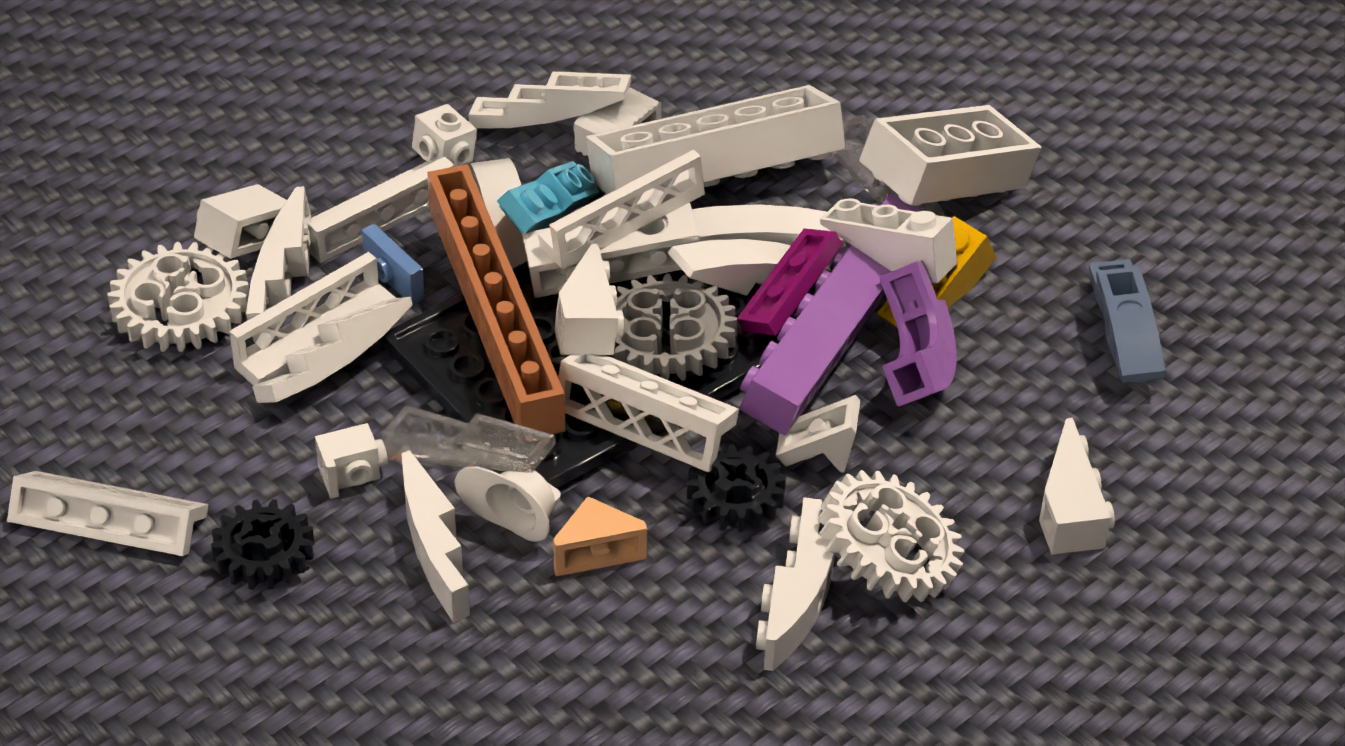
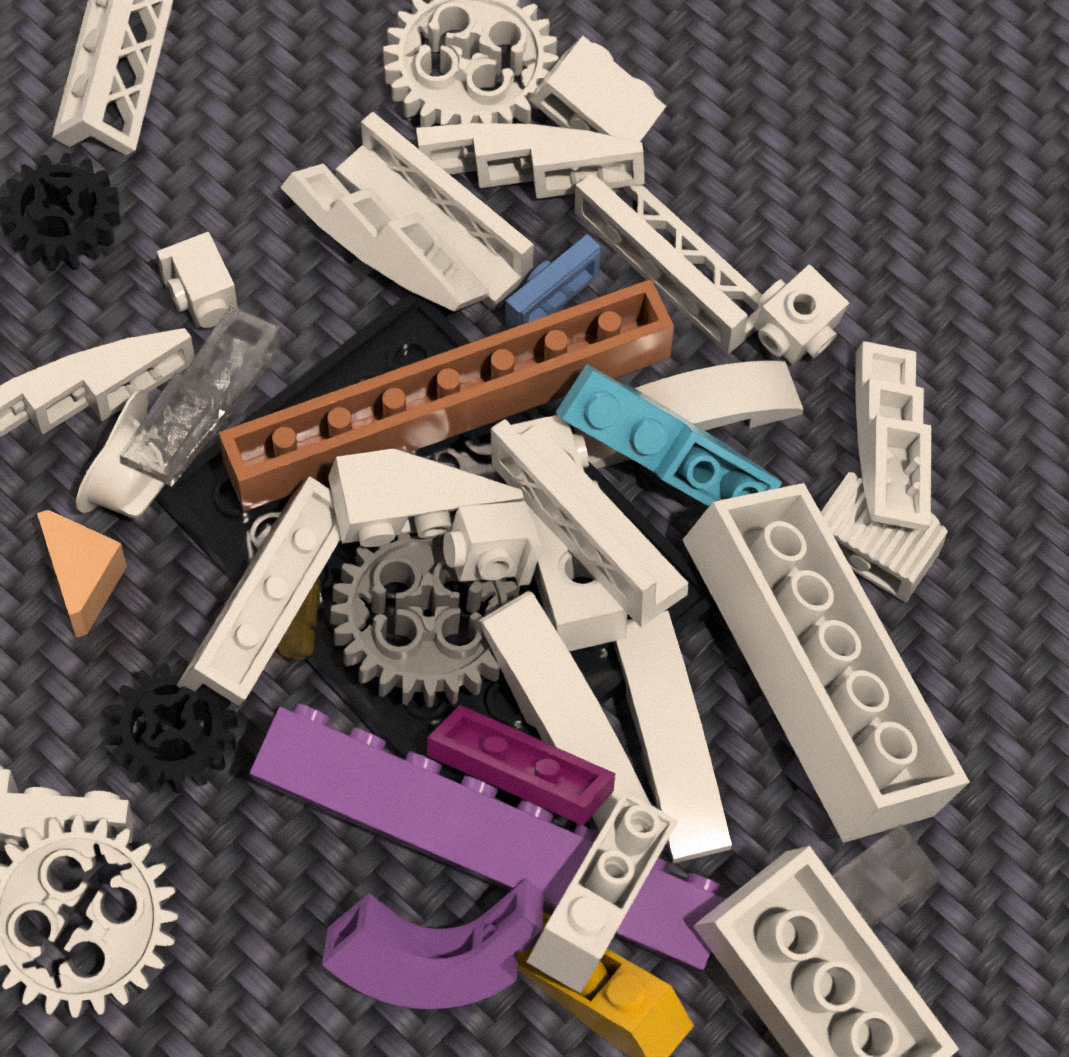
camera: 85 degrees right, 20 degrees up
(629, 266) = (493, 543): none -> white brick
(824, 431) = (261, 830): white slope -> none

